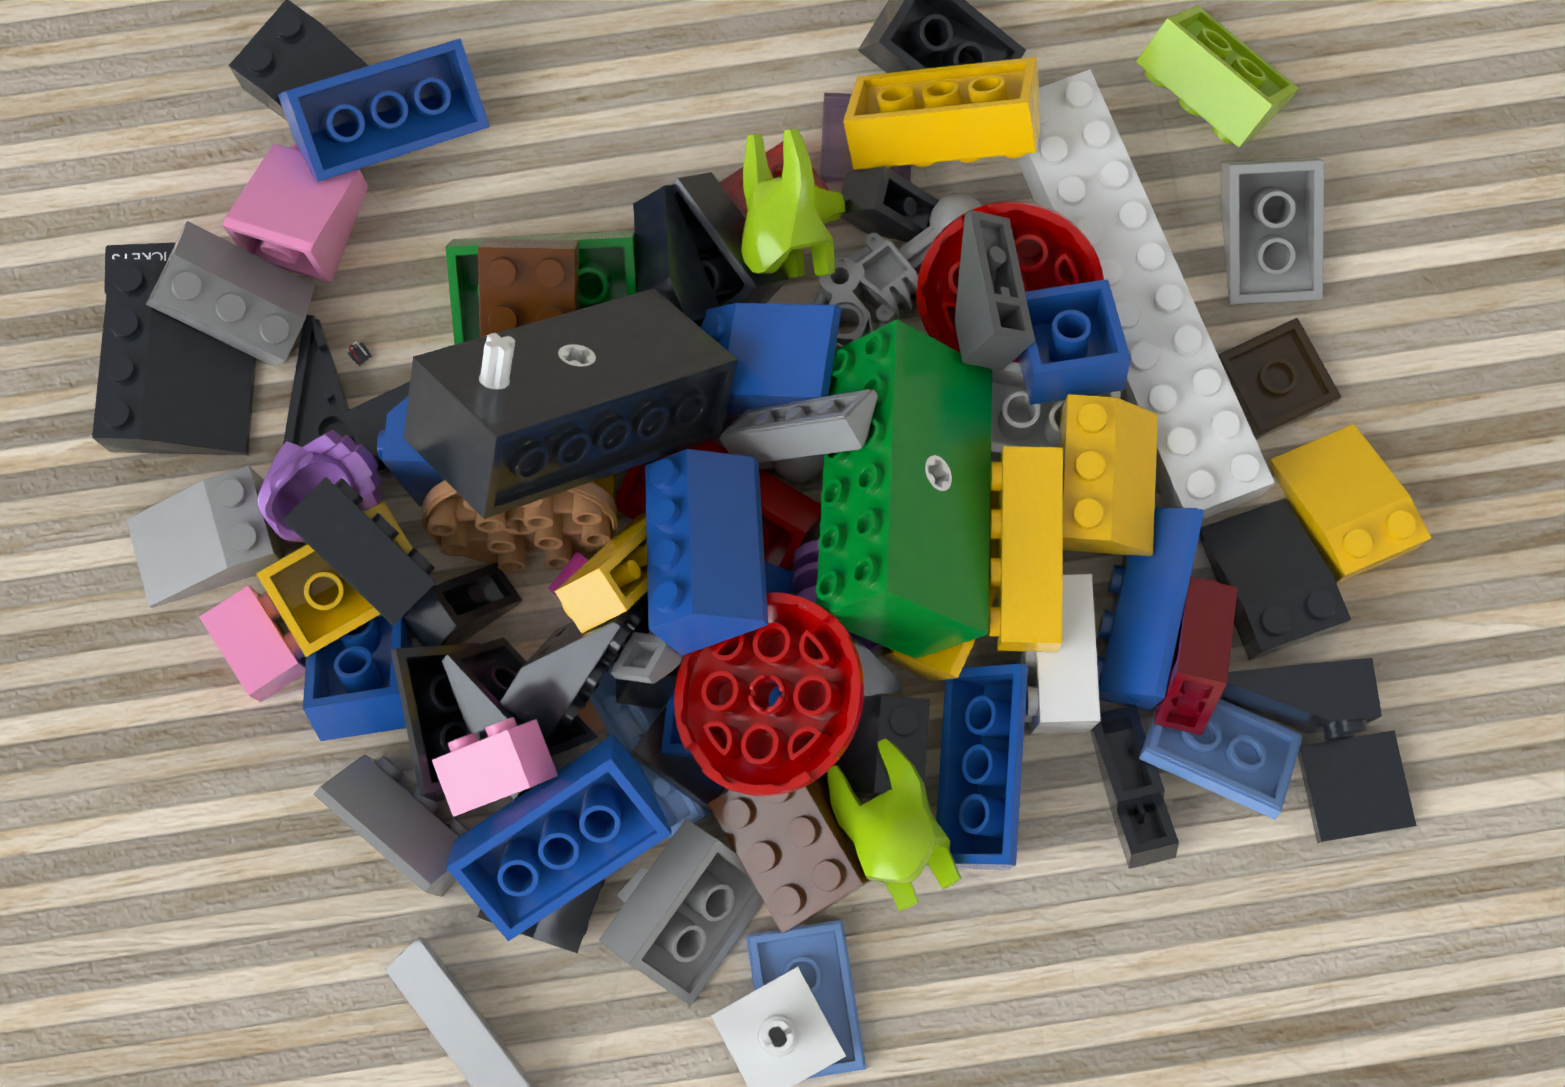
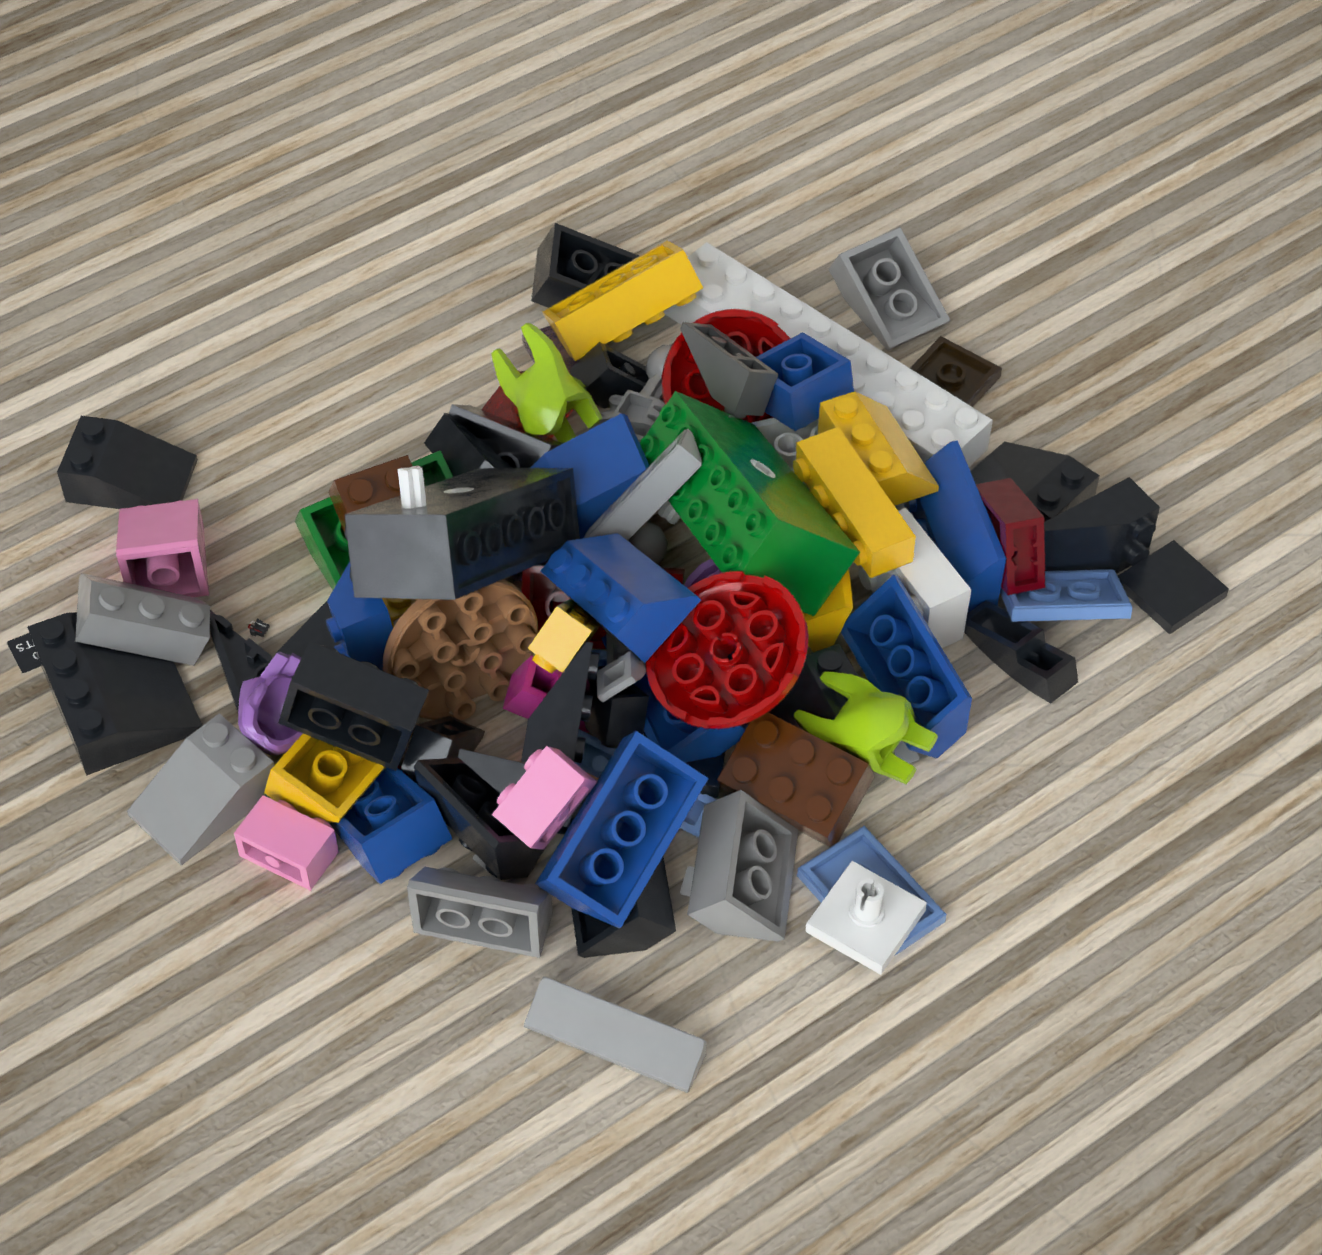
camera: 30 degrees left, 25 degrees down
(384, 110) = (194, 453): blue slope -> none
(1215, 75) = (792, 225): lime slope -> none
(1349, 503) = (1055, 420): yellow slope -> none

